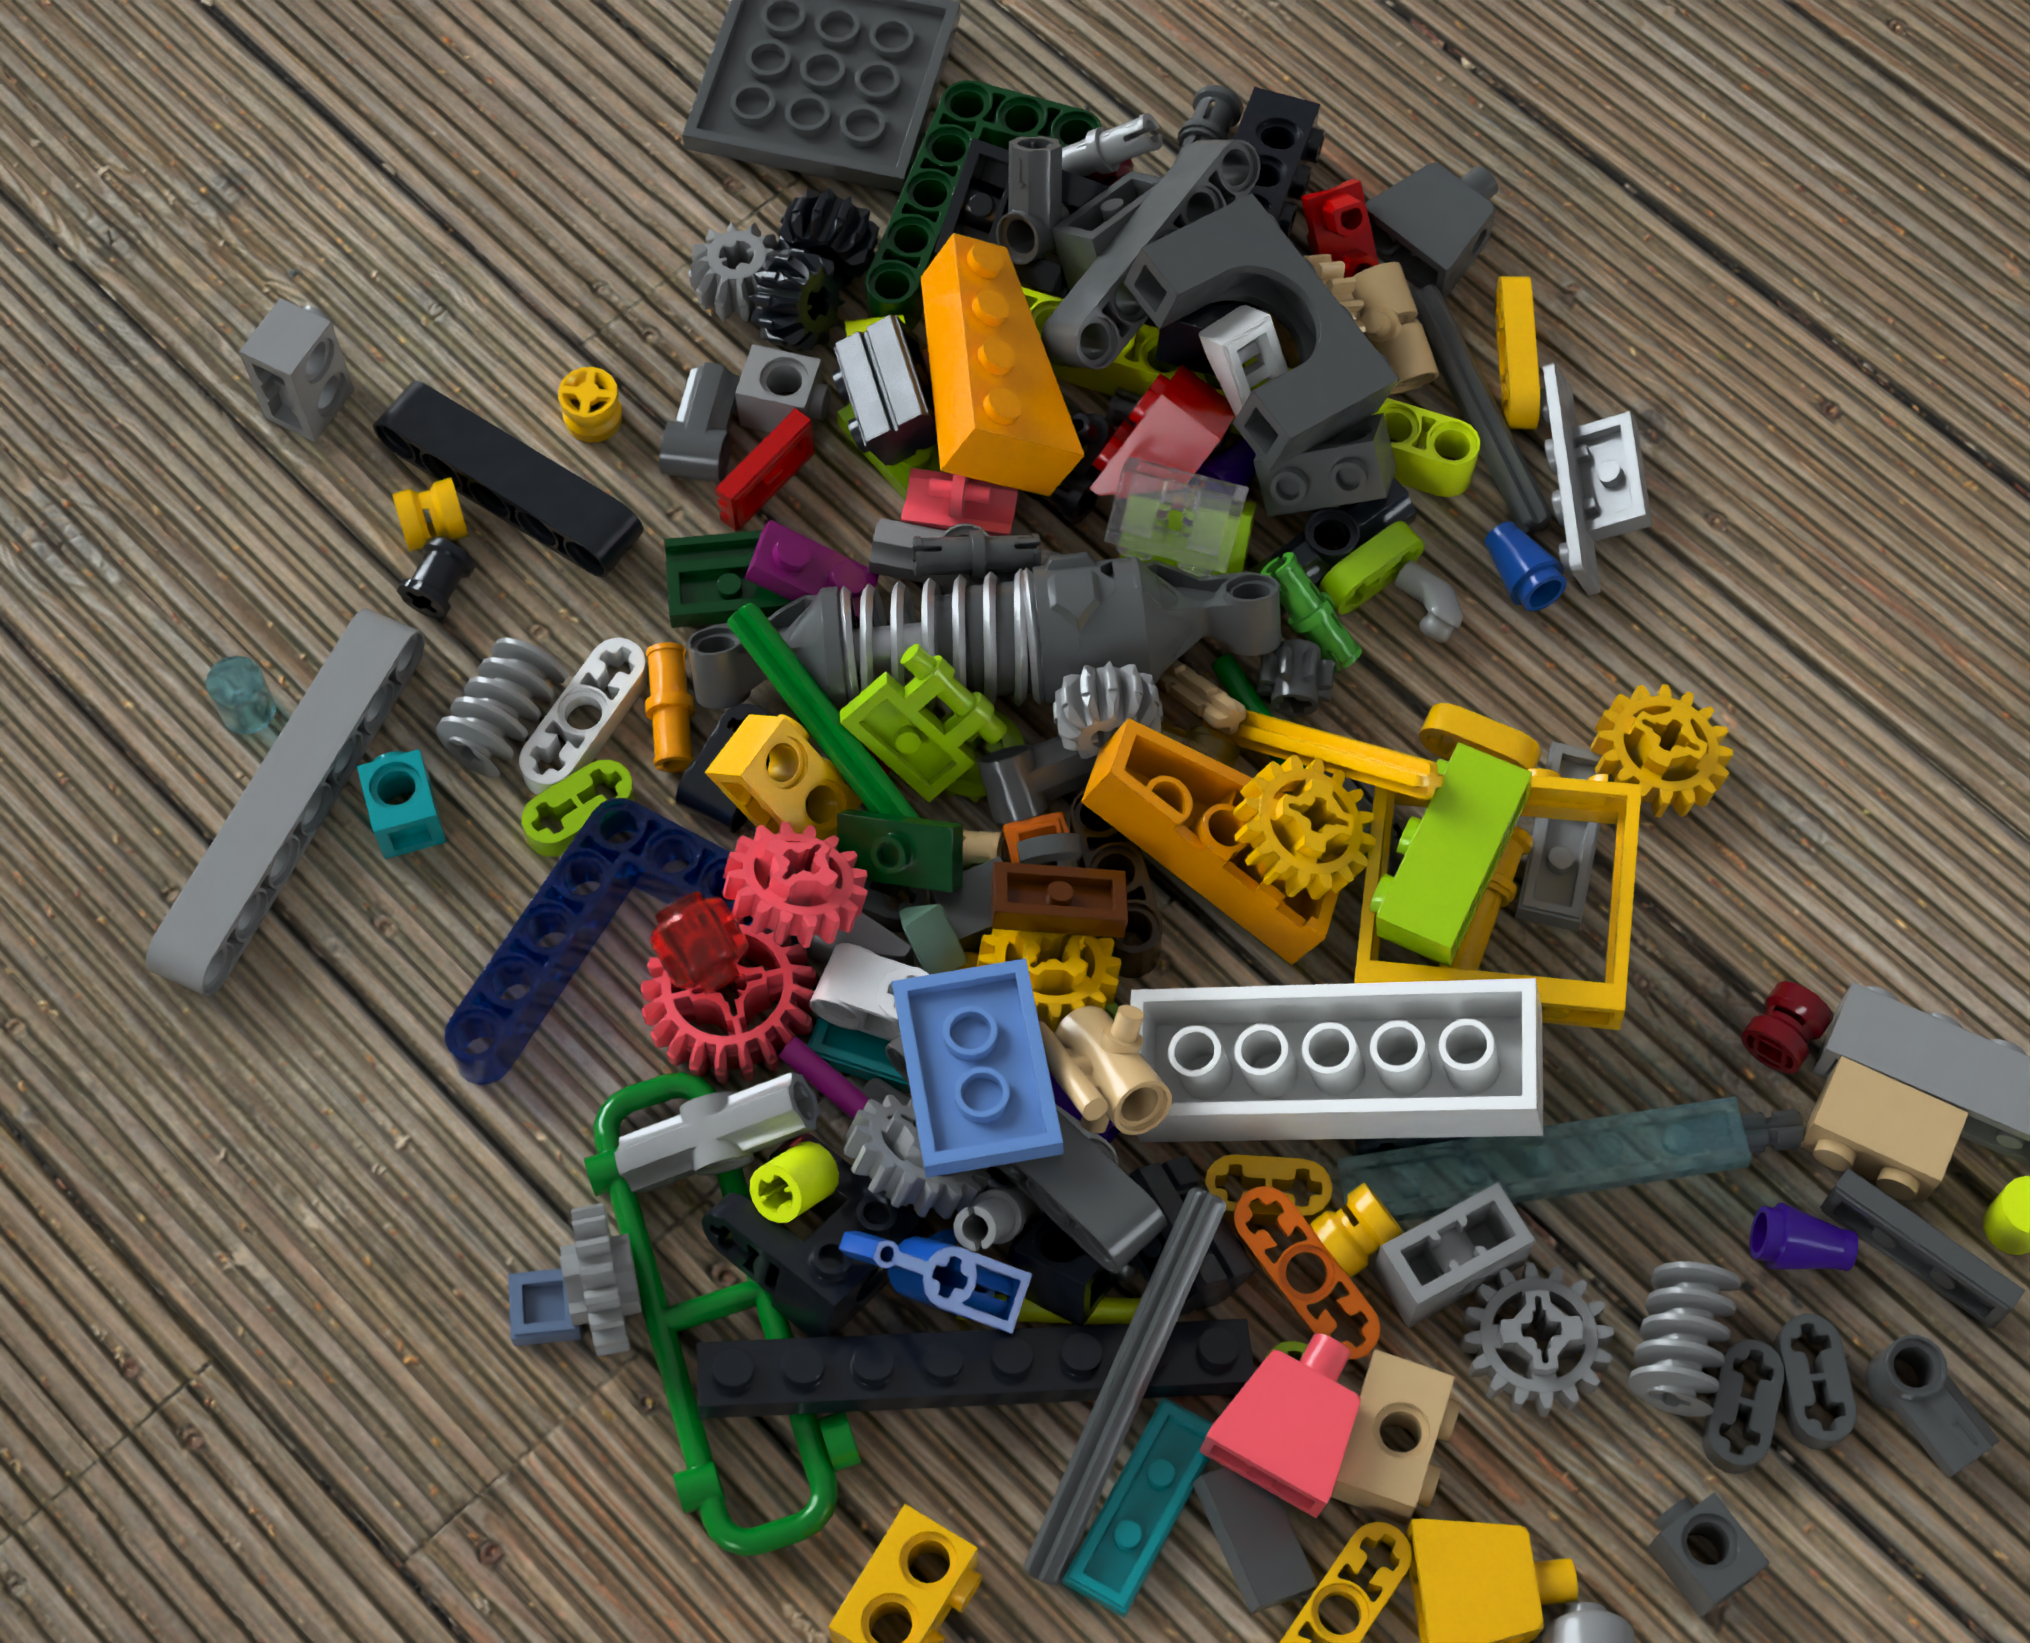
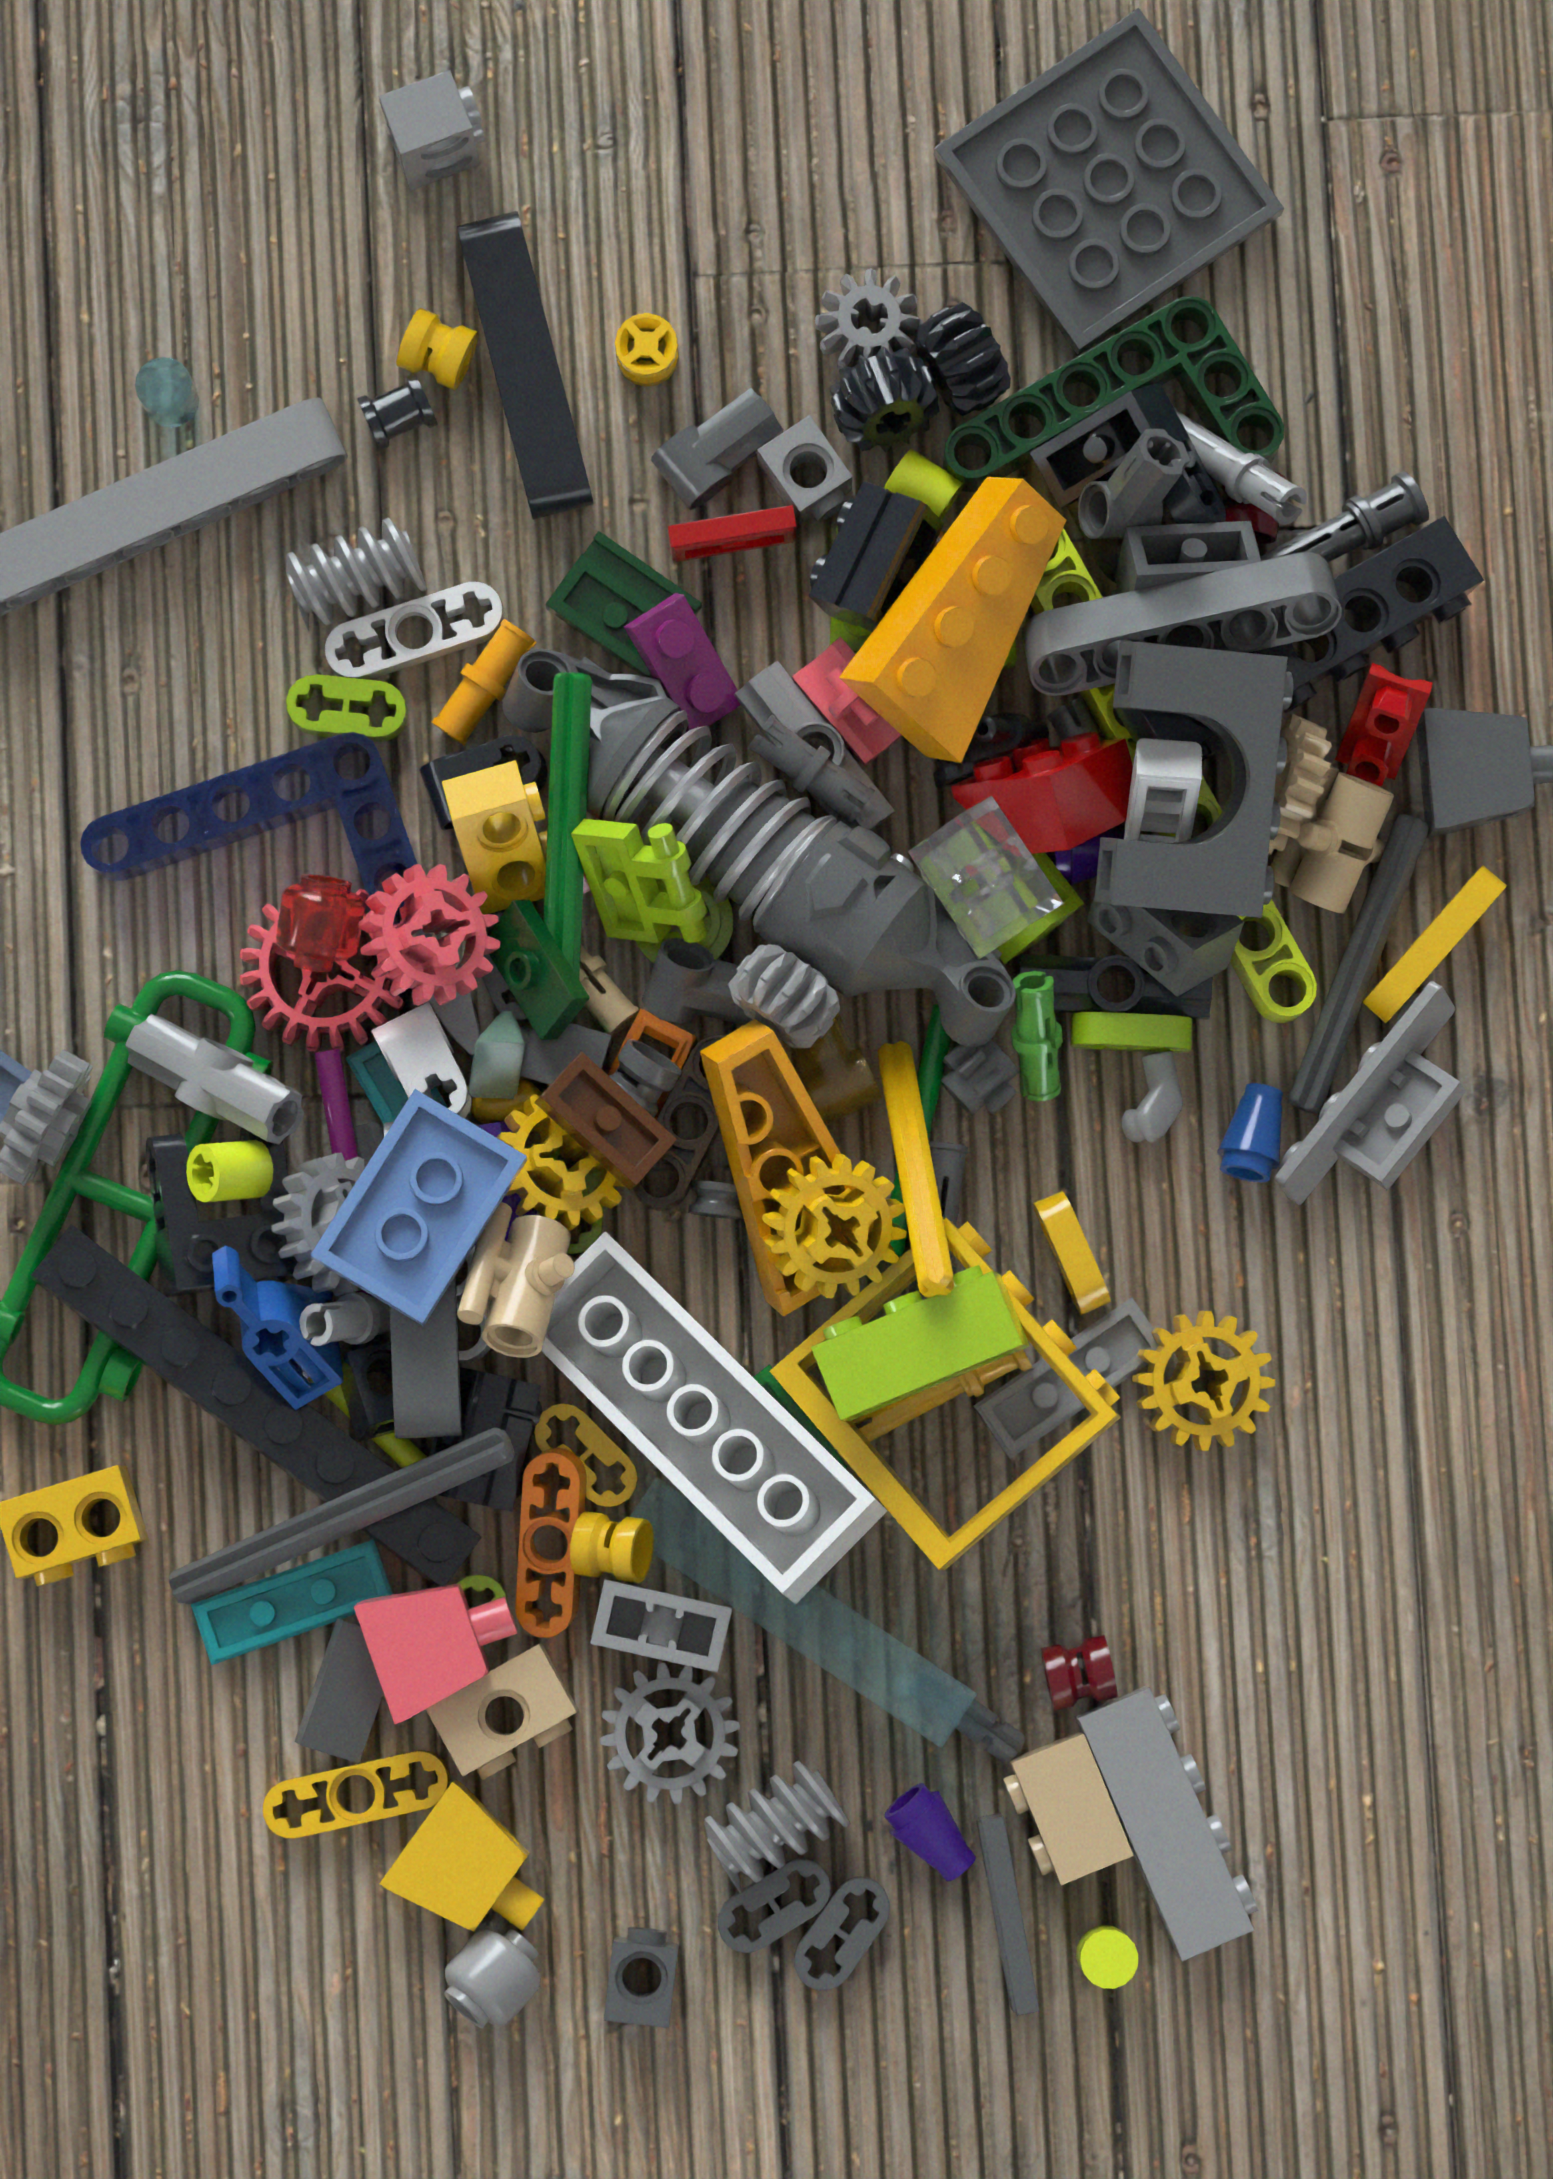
camera: 40 degrees right, 20 degrees up
(407, 825) = (221, 619): teal brick -> none
(1189, 919) = (715, 1200): none -> dark grey bush
(1202, 697) = (888, 1036): tan axle -> none
(1935, 1409) = (901, 2028): dark grey piece -> none

